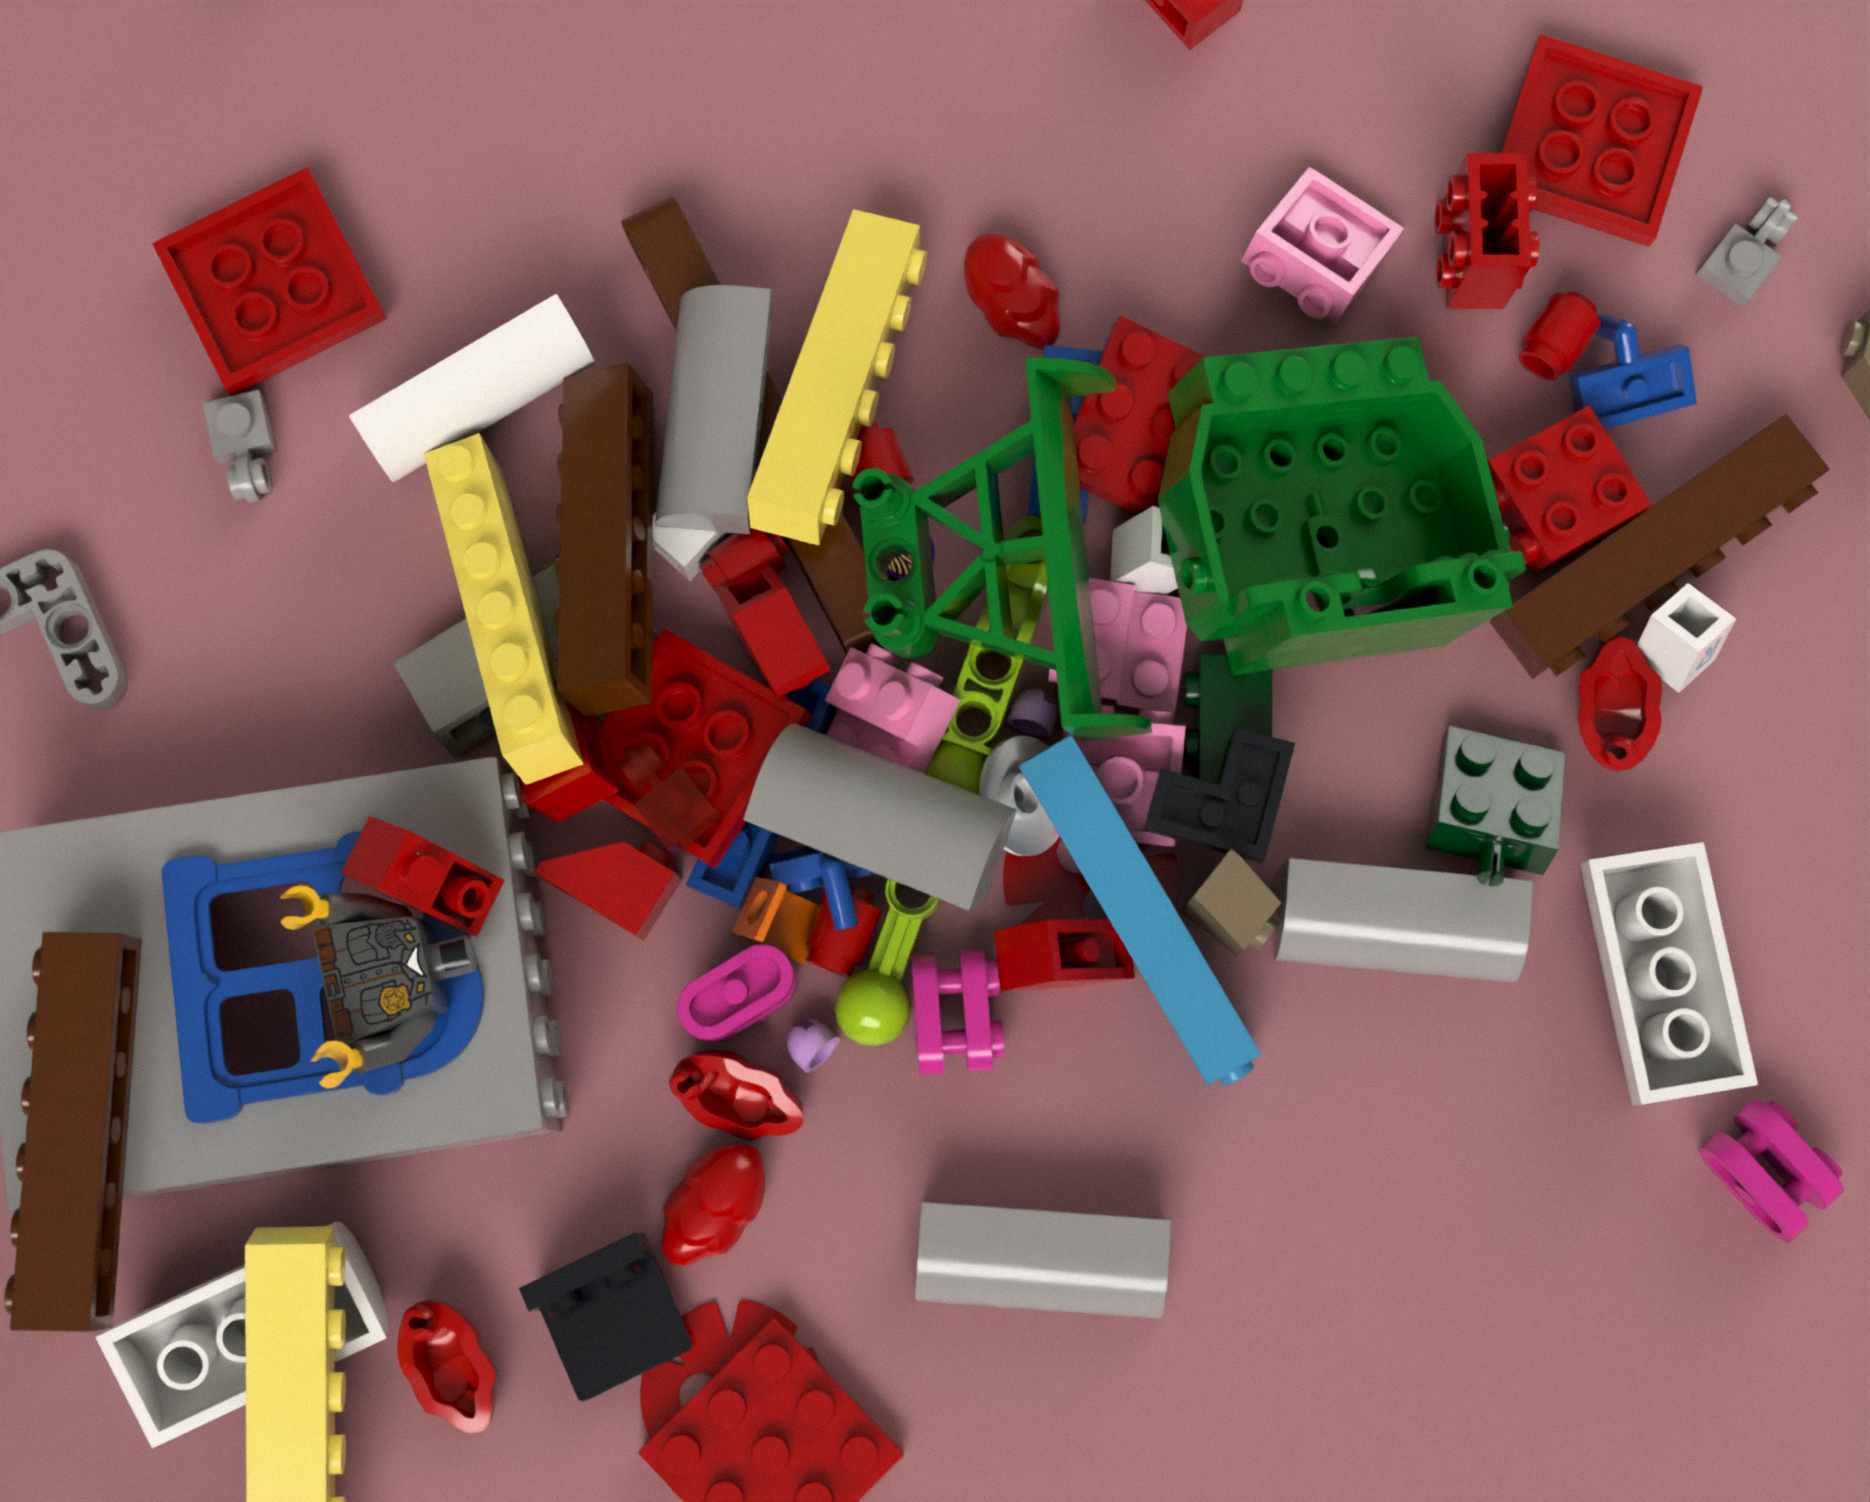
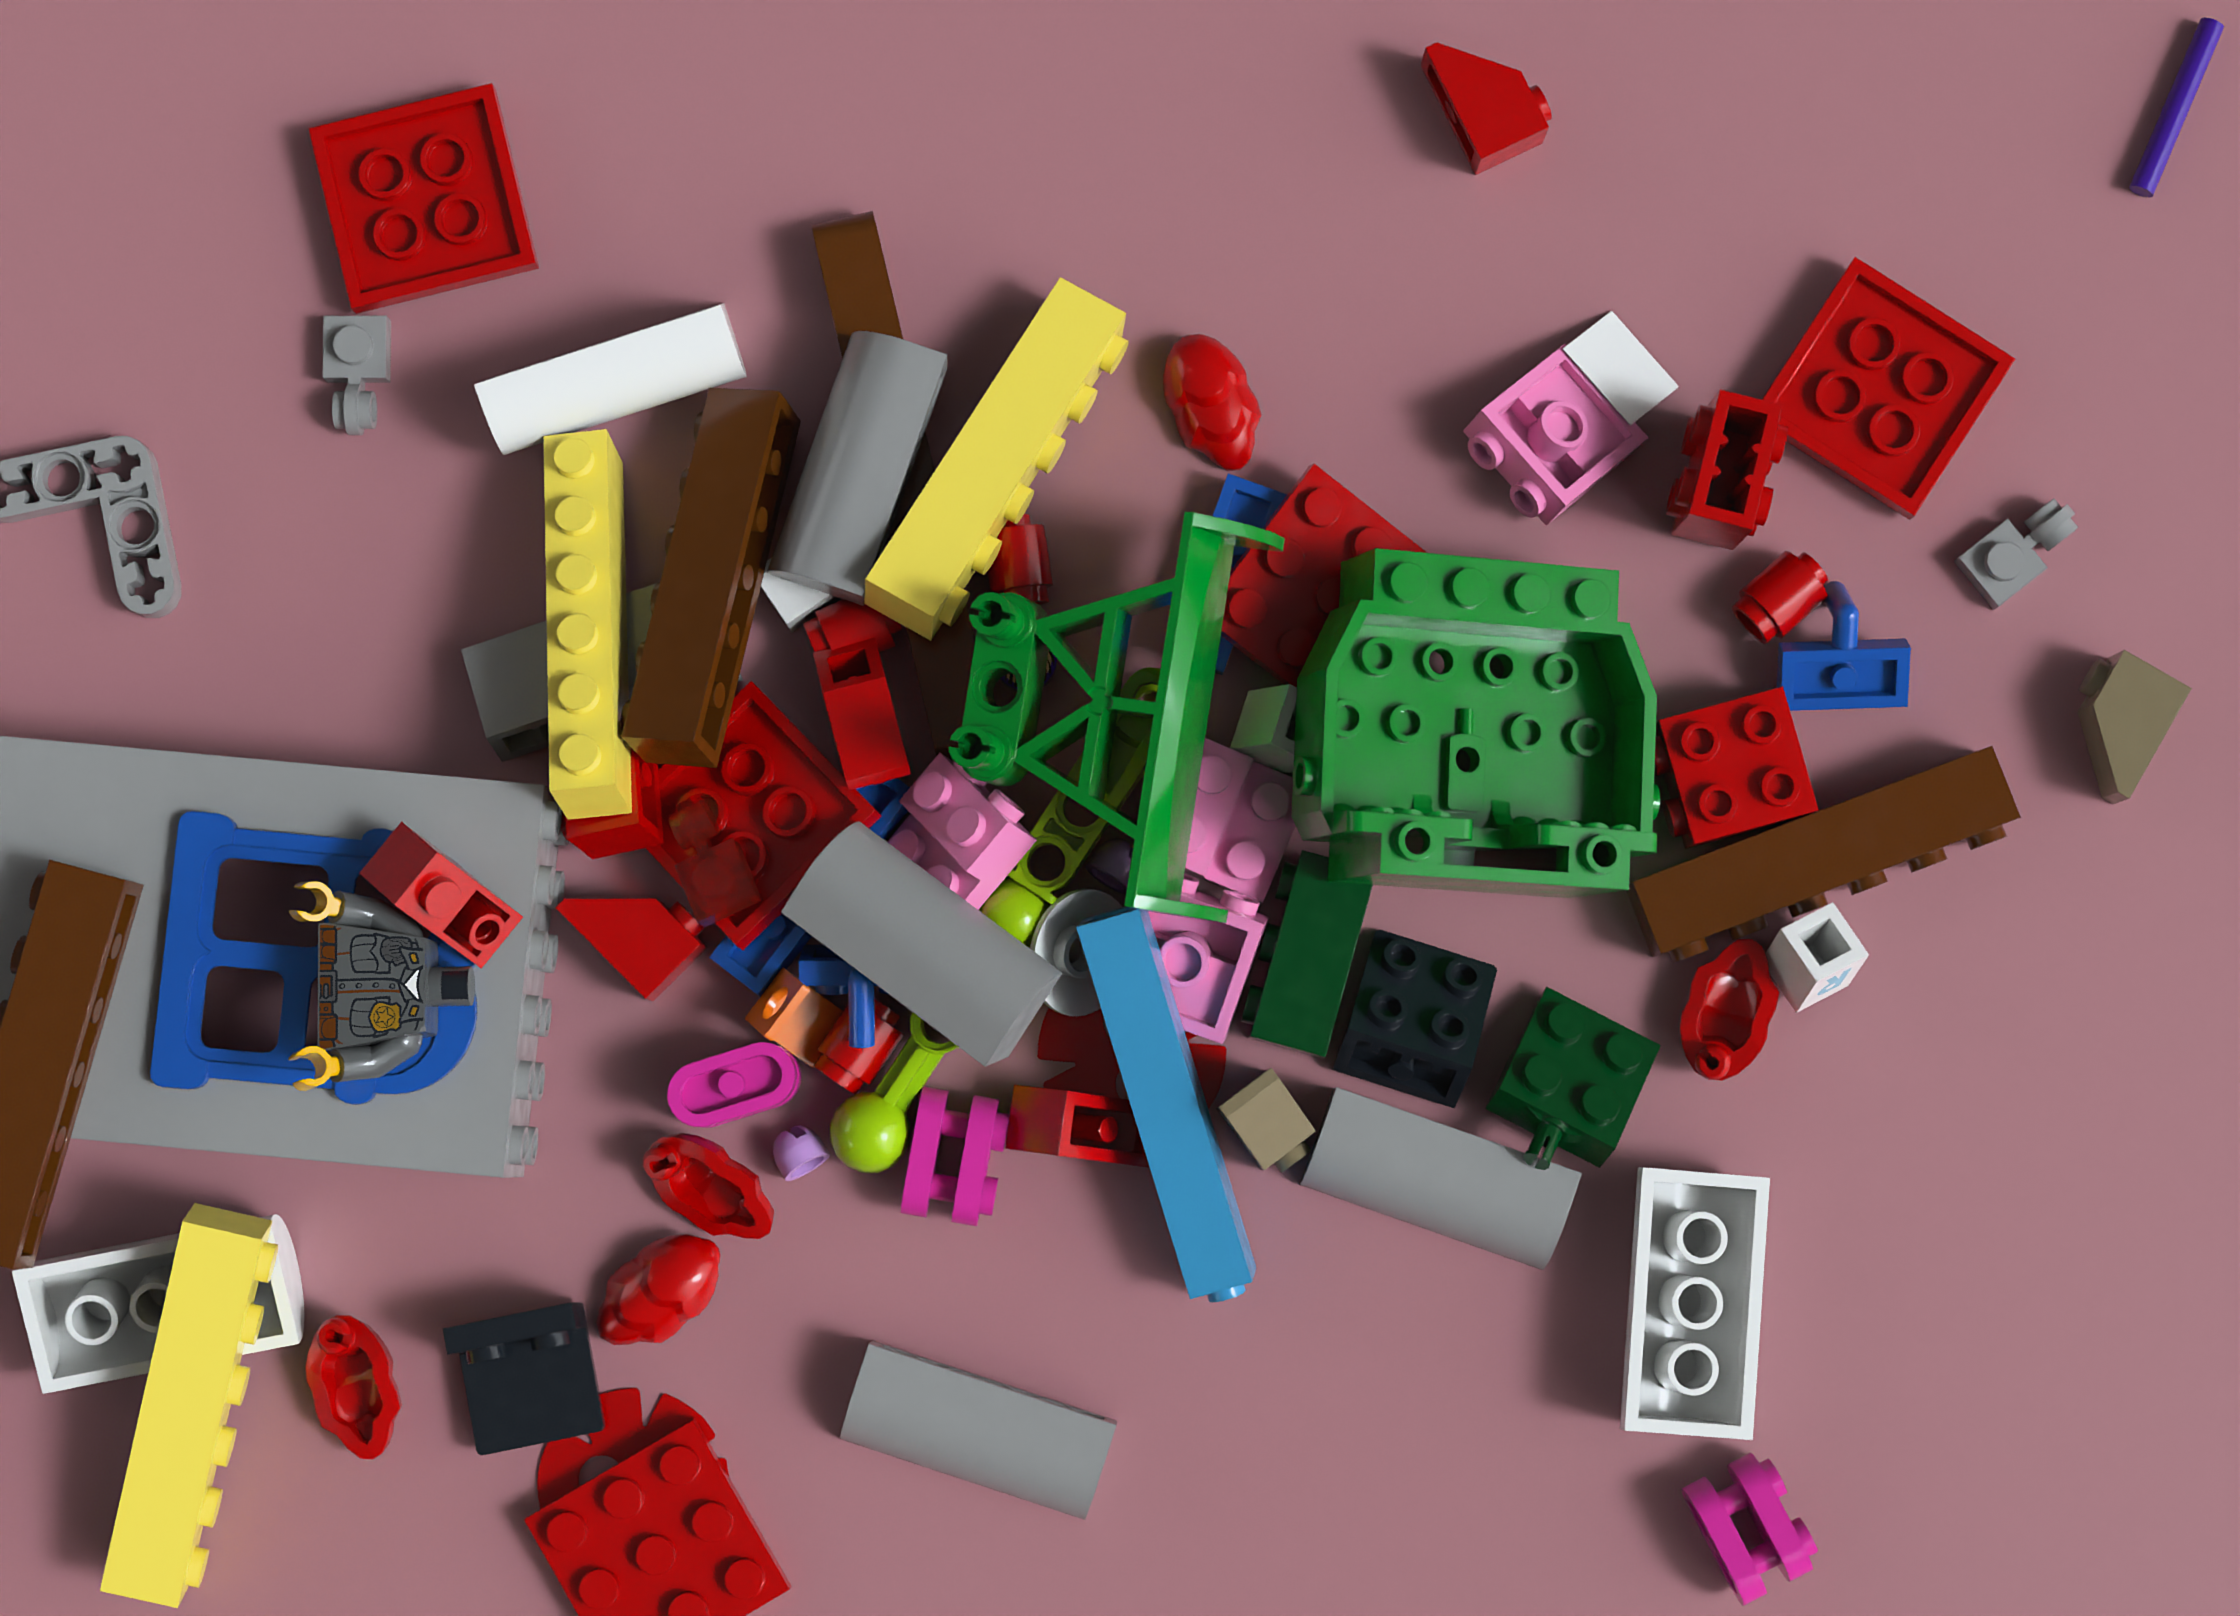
camera: 15 degrees right, 5 degrees up
(1228, 814) = (1286, 1029): black plate -> none
(1343, 785) = (1416, 1019): none -> black bracket
(1362, 177) = (1620, 367): none -> white sticker

